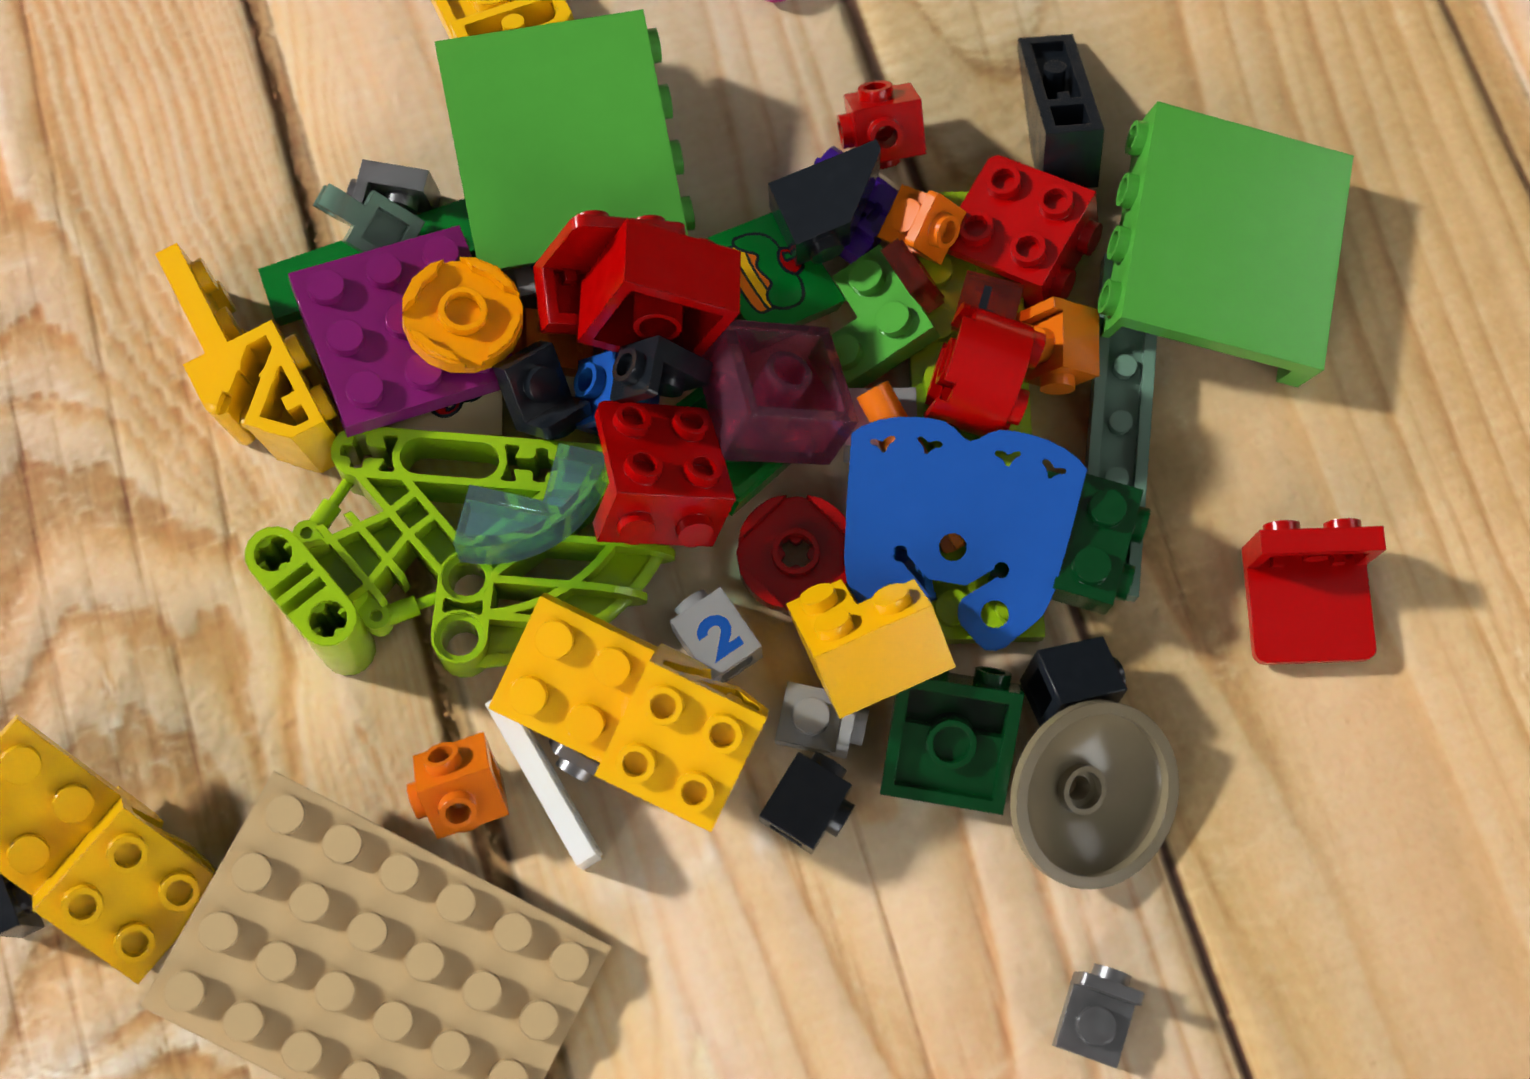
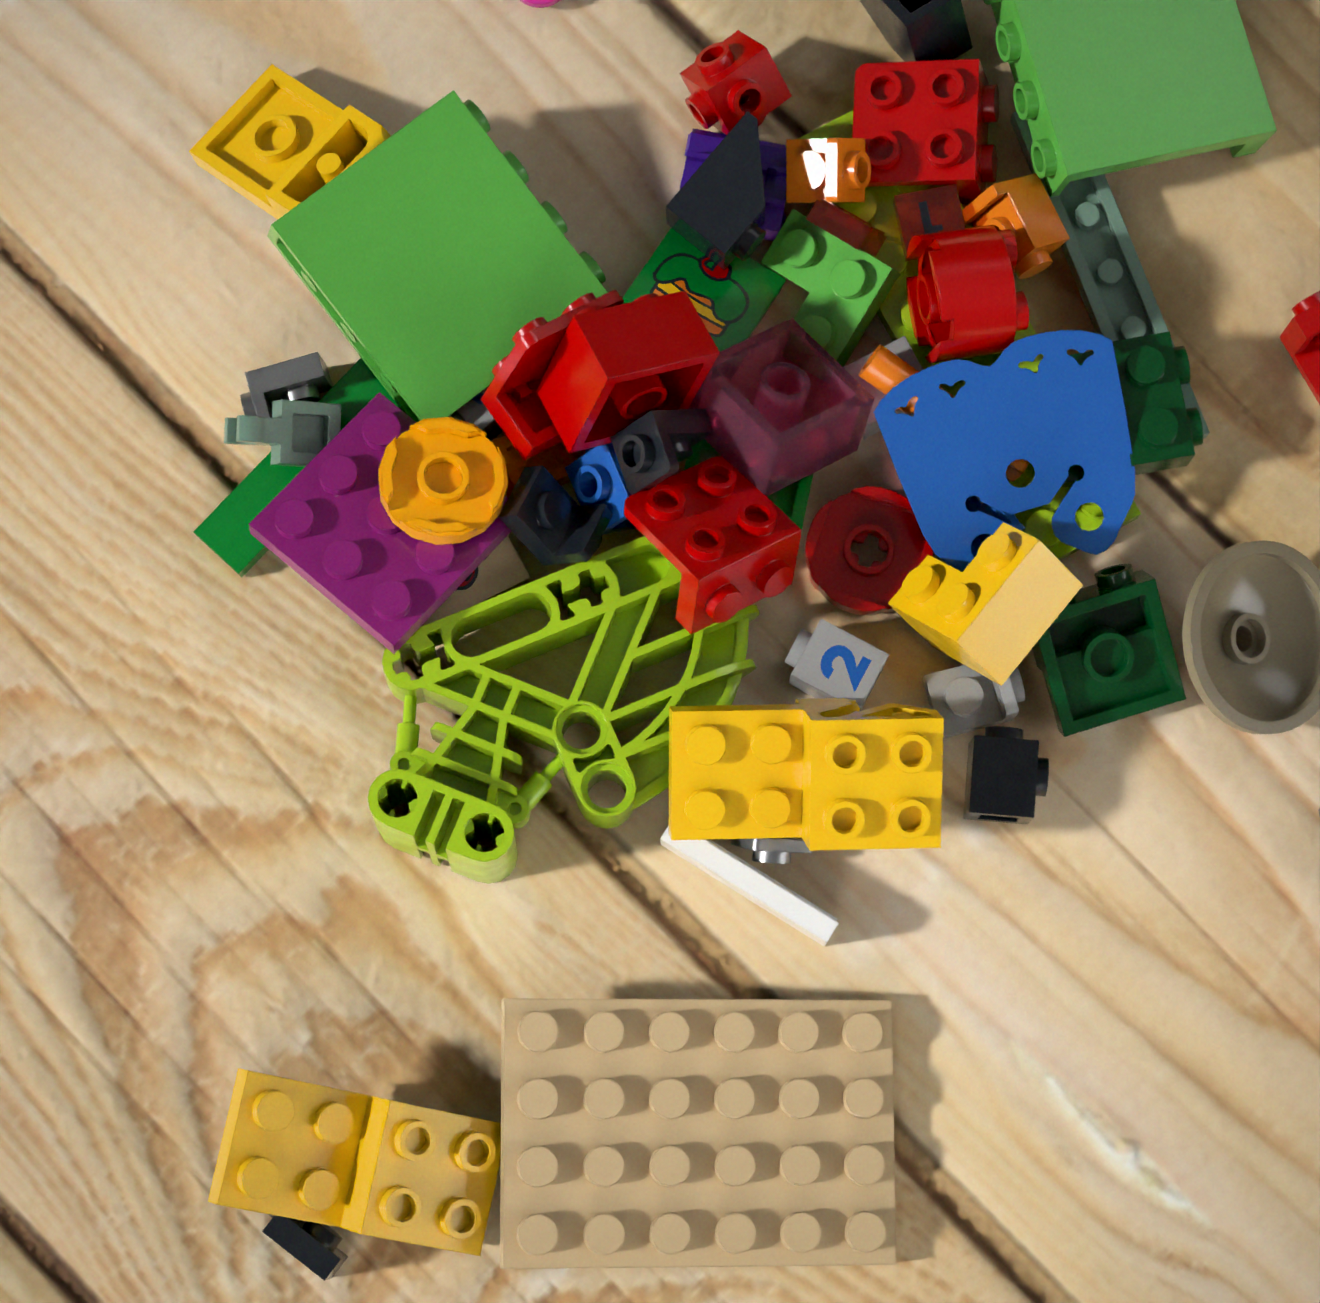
camera: 25 degrees left, 5 degrees up
(253, 379) = (330, 660): yellow piece -> none
(458, 786) = (673, 927): orange brick -> none
(512, 527) = (605, 660): clear light blue brick -> none
(1072, 675) = (1187, 540): black brick -> none

